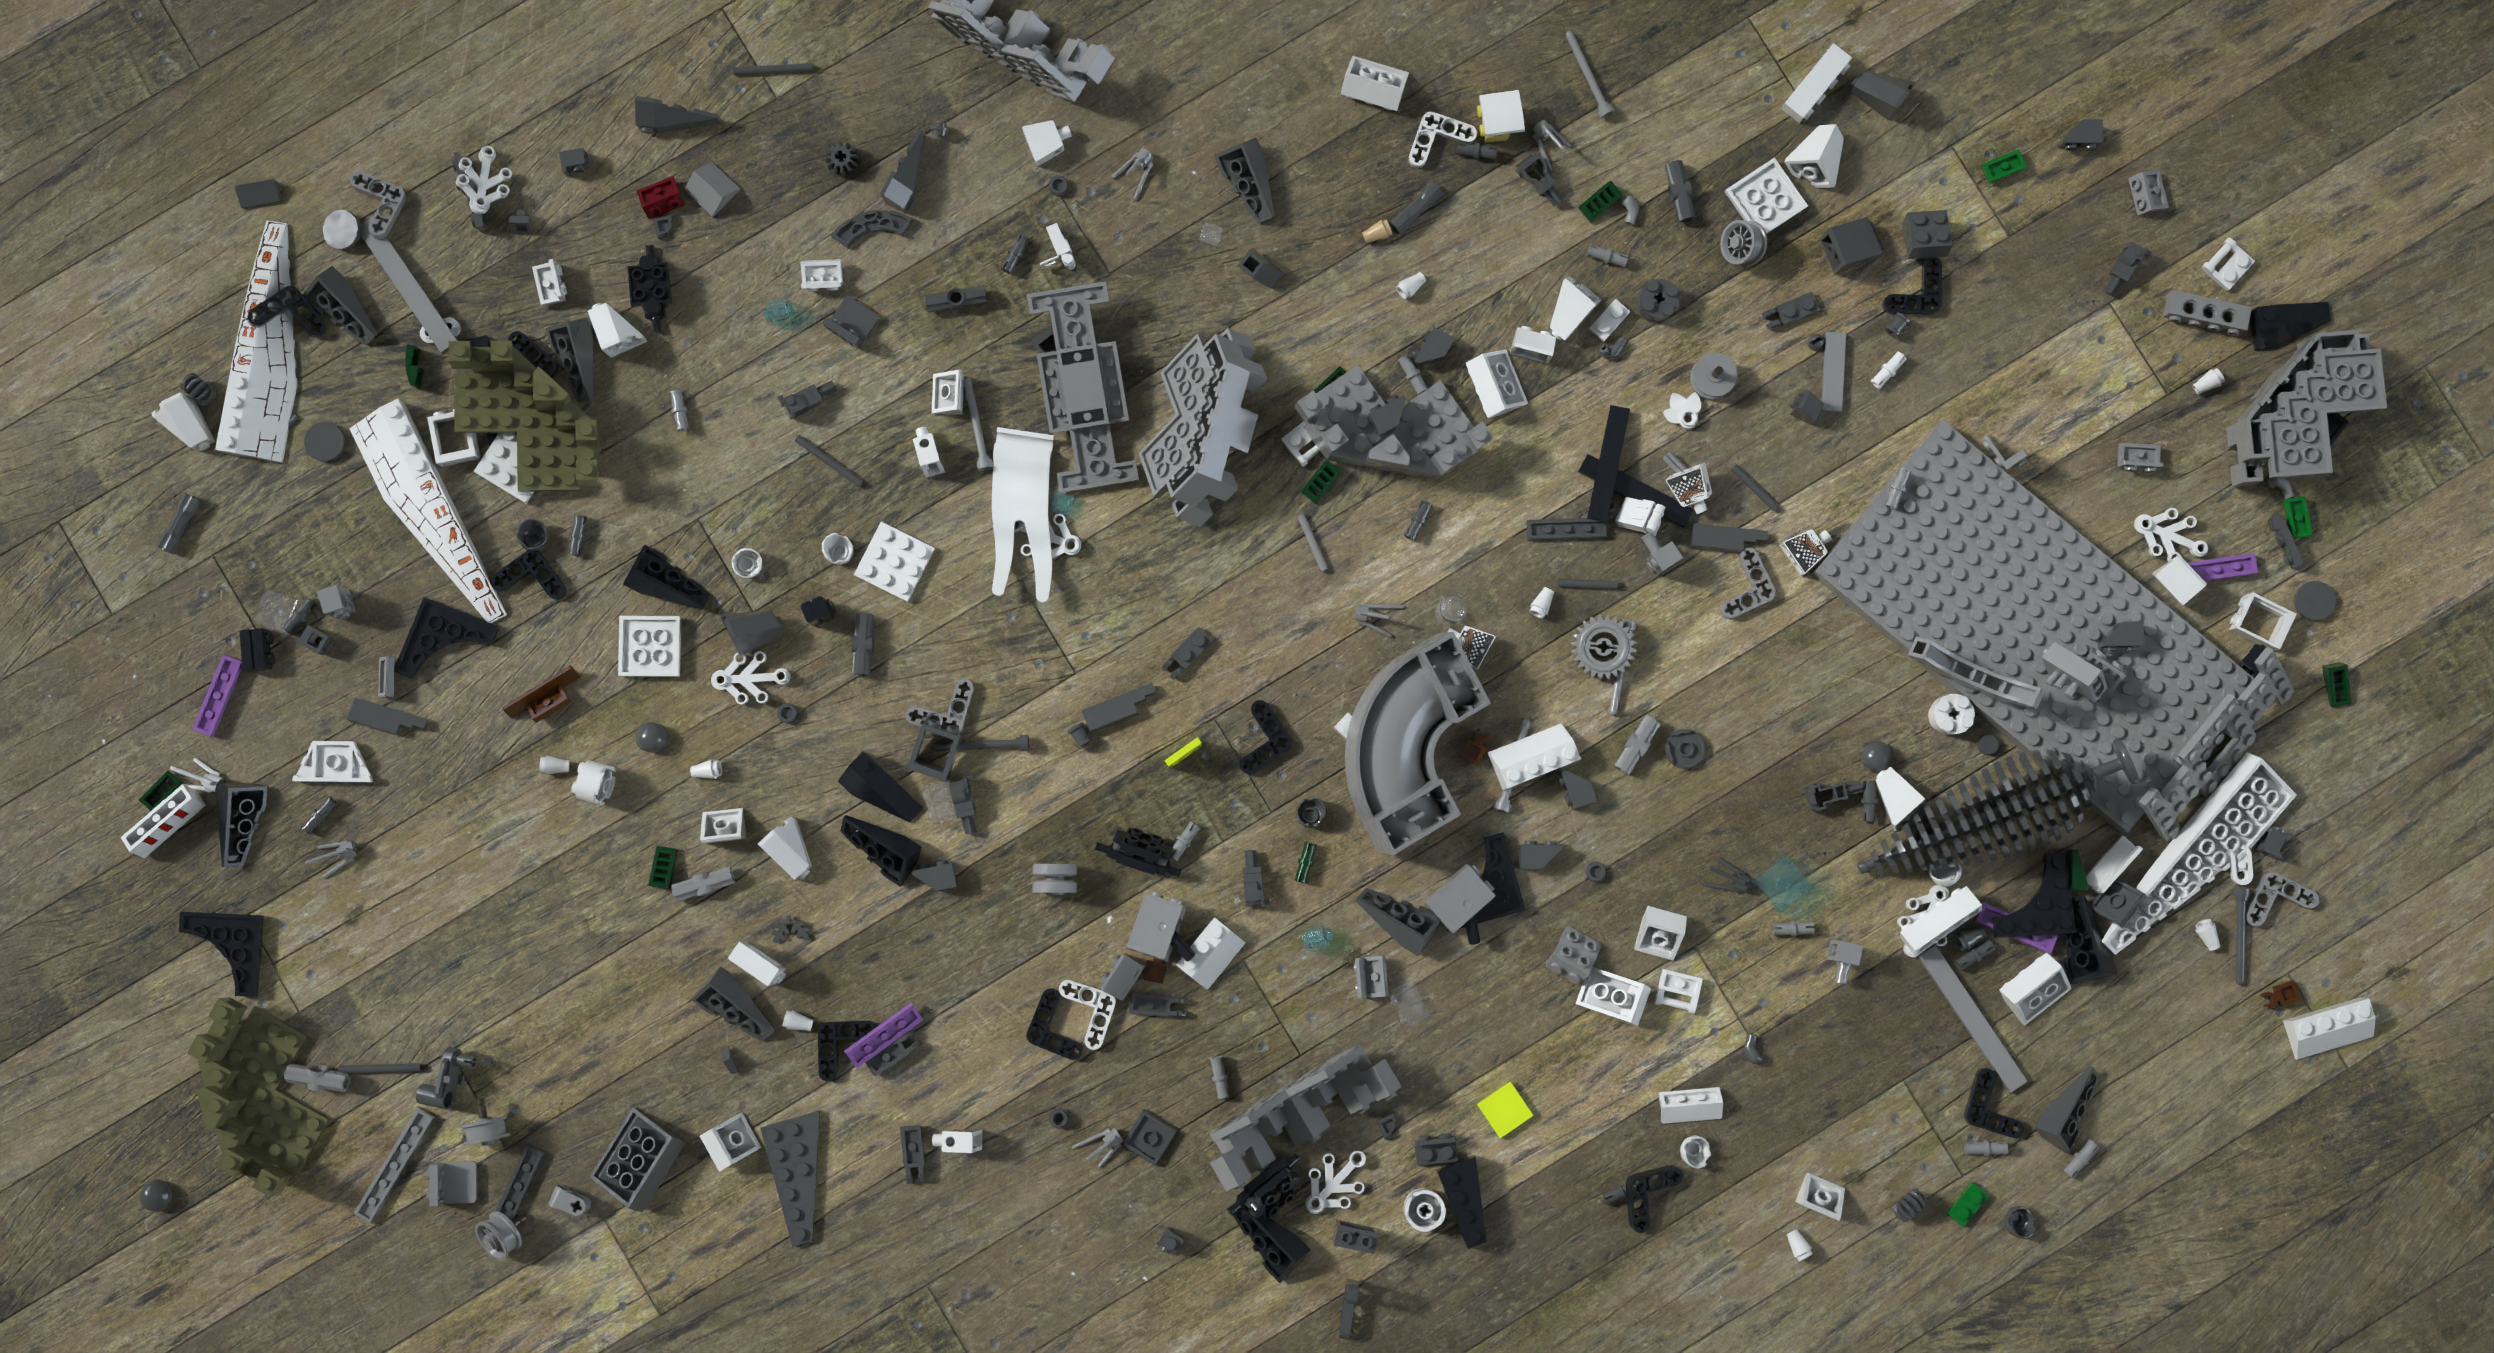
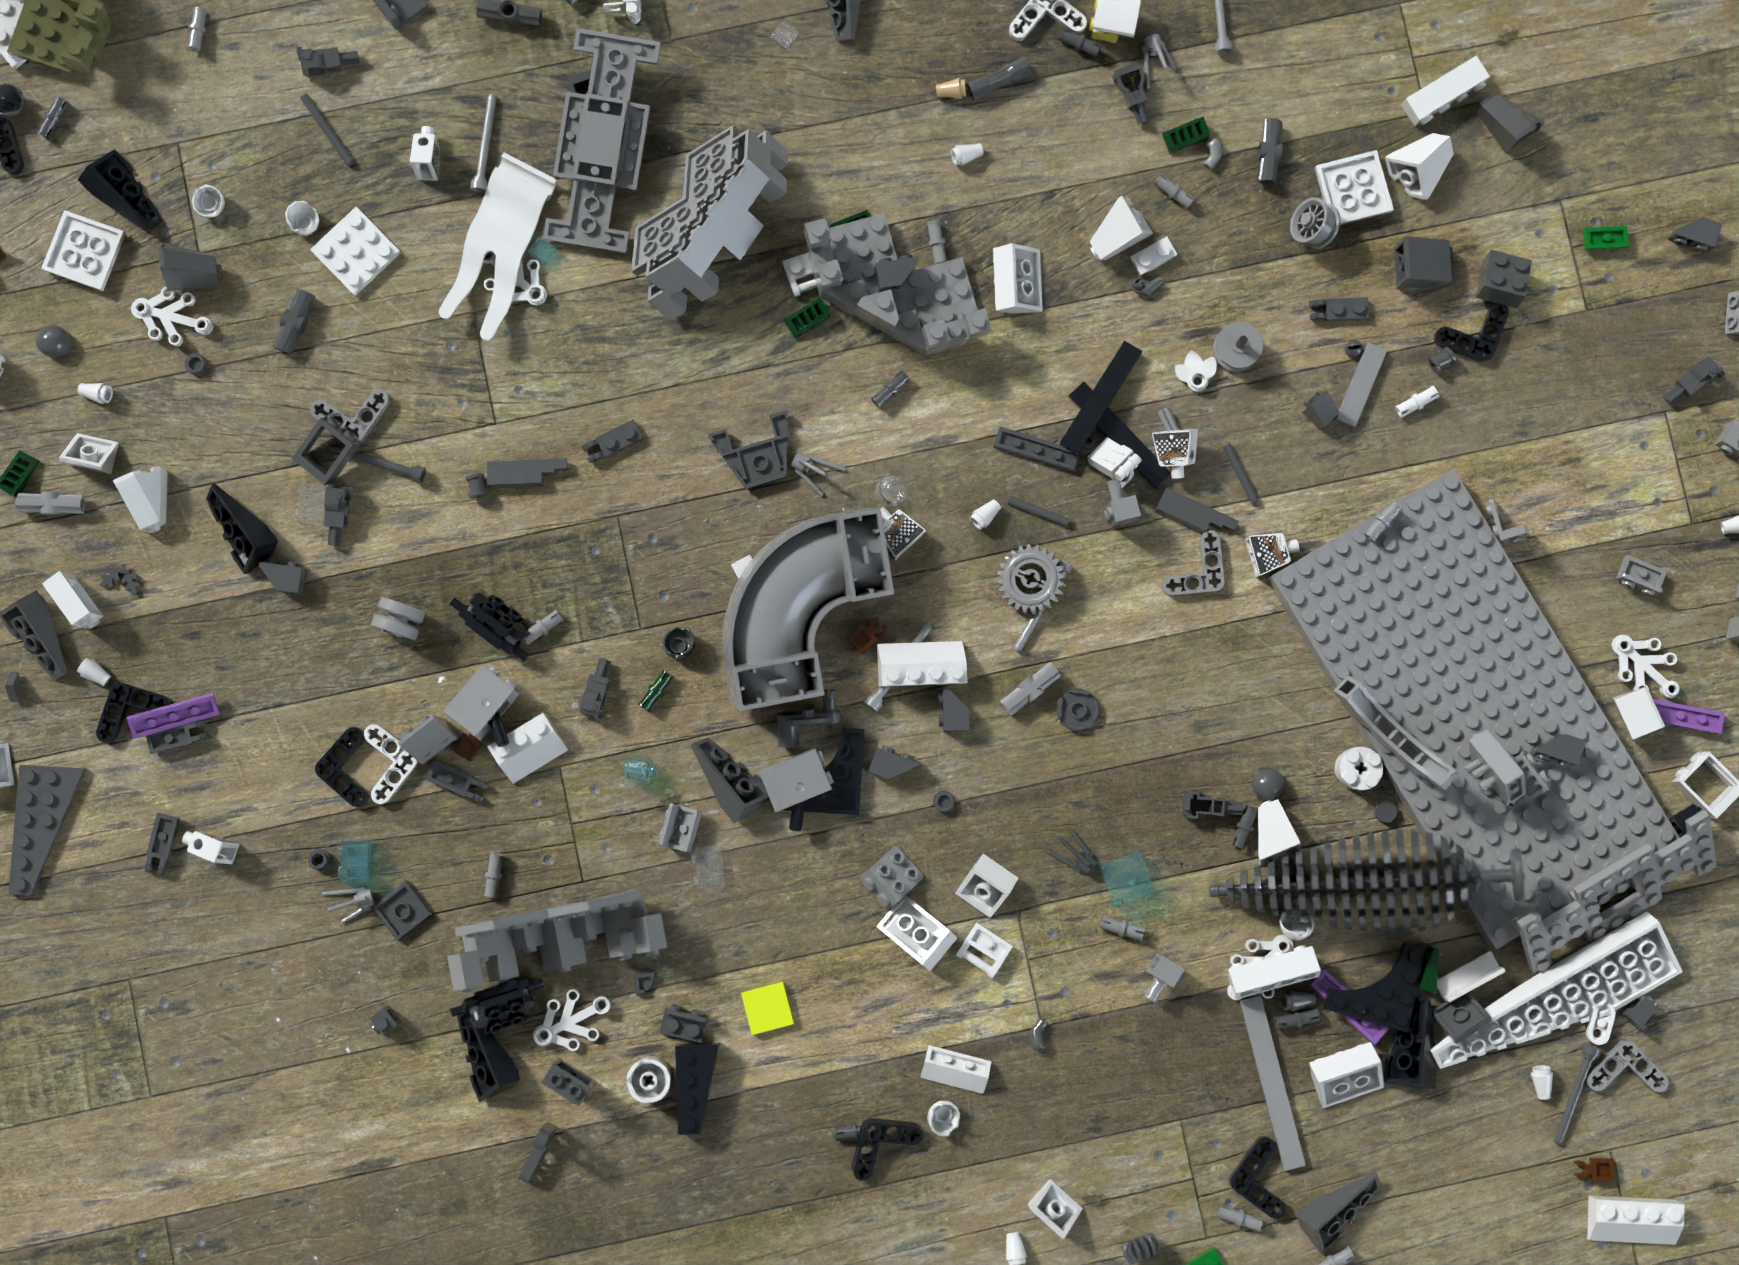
camera: 20 degrees right, 0 degrees up
(818, 611) = (259, 272): black brick -> none
(872, 784) = (254, 463): black wedge -> none
(948, 393) = (469, 103): white slope -> none
(1093, 1108) = (355, 862): none -> clear light blue brick
(1183, 753) = (571, 538): neon yellow tile -> none
(1260, 268) = (821, 84): dark grey slope -> none
(1272, 736) = (668, 554): black beam -> none
(1312, 542) = (777, 374): light grey bar -> none
(1325, 625) = (760, 461): none -> dark grey wing
(1435, 347) = (967, 223): dark grey slope -> none
(1435, 848) = (789, 721): none -> dark grey piece
(1533, 344) = (1067, 253): white slope -> none
(1668, 298) = (1208, 240): dark grey brick -> none

